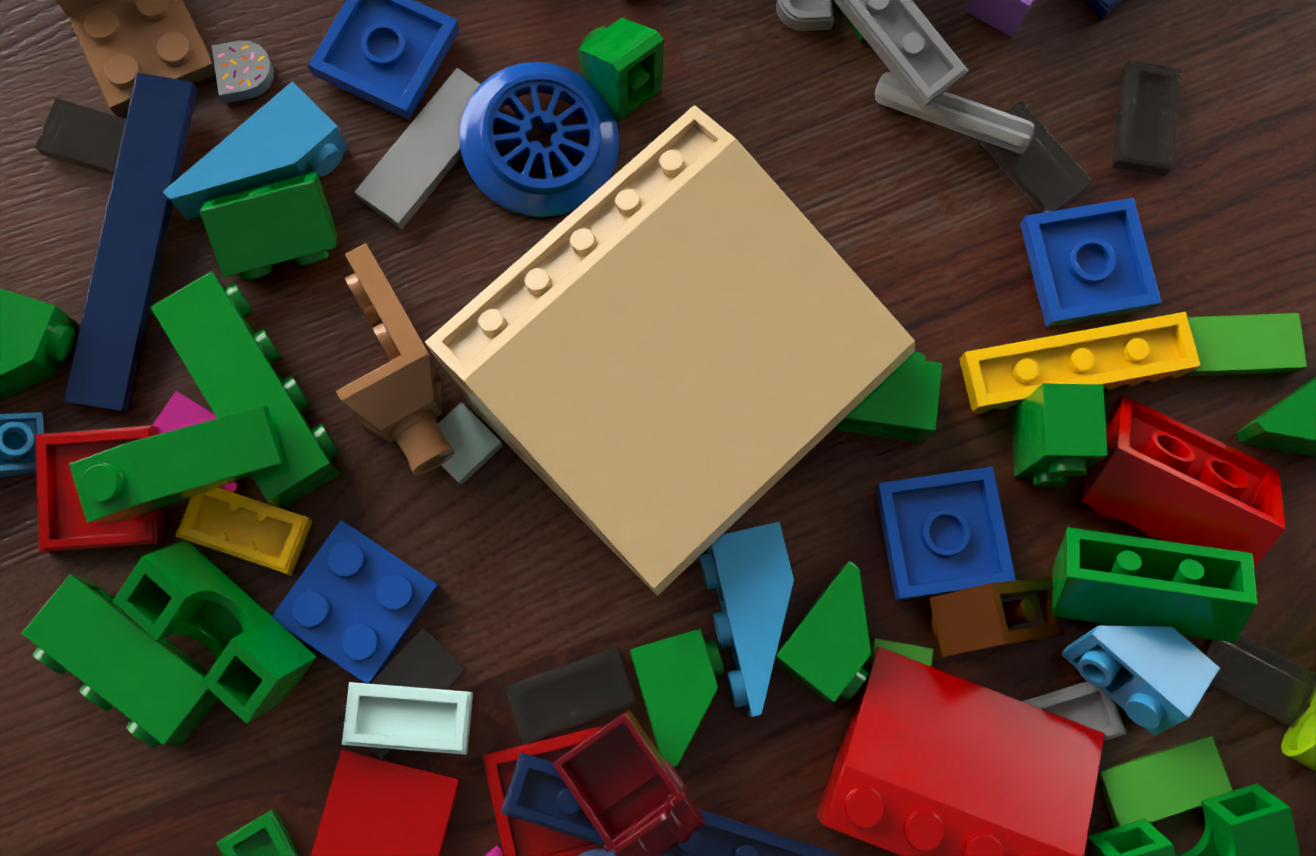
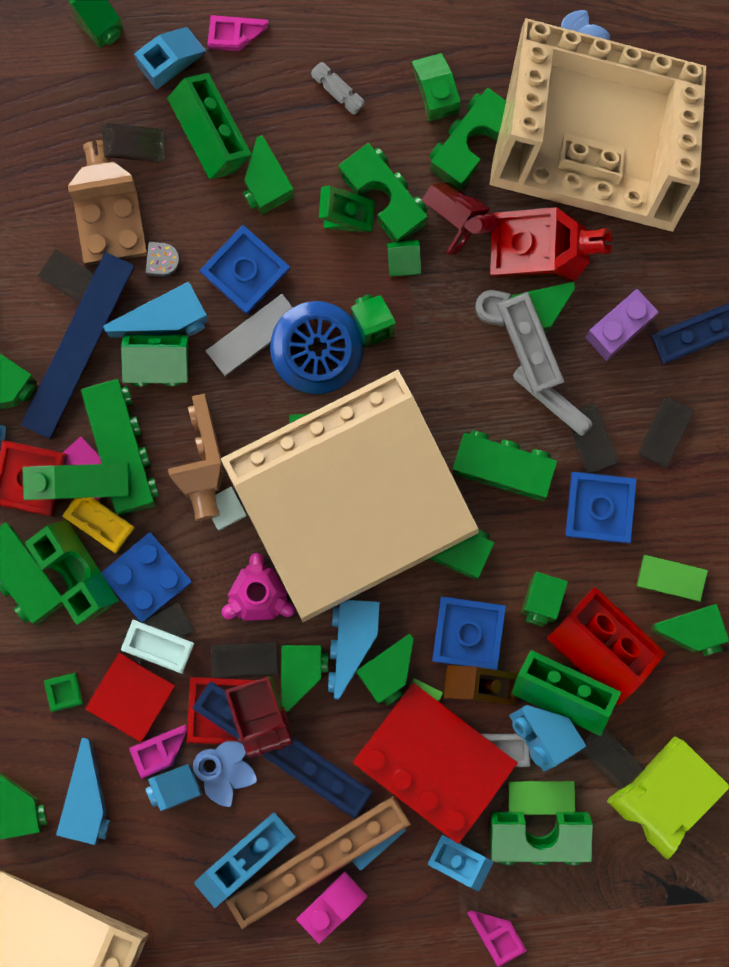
camera: 20 degrees right, 5 degrees up
(559, 573) = (257, 594): none -> dark pink rock
(916, 237) = (504, 465): none -> green brick
(1100, 355) = (574, 562): yellow gear -> none

